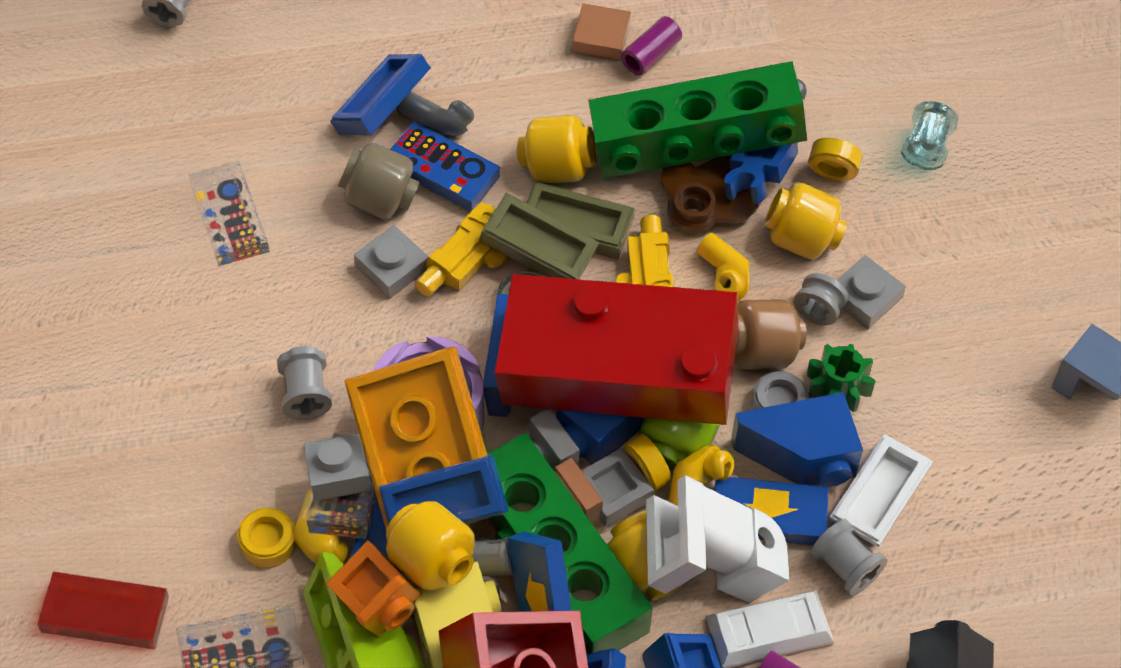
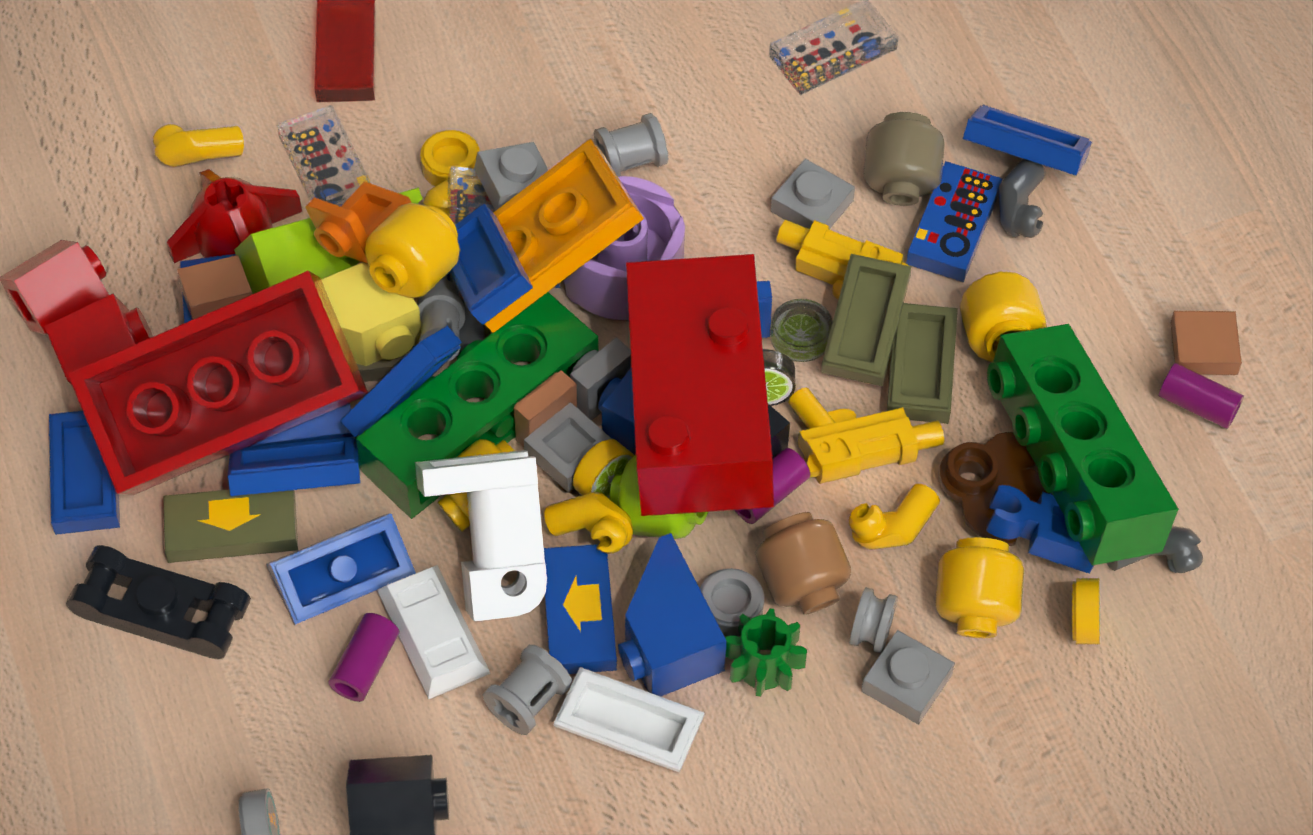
camera: 80 degrees right, 0 degrees up
(928, 140) = (1162, 716): clear light blue bush -> none

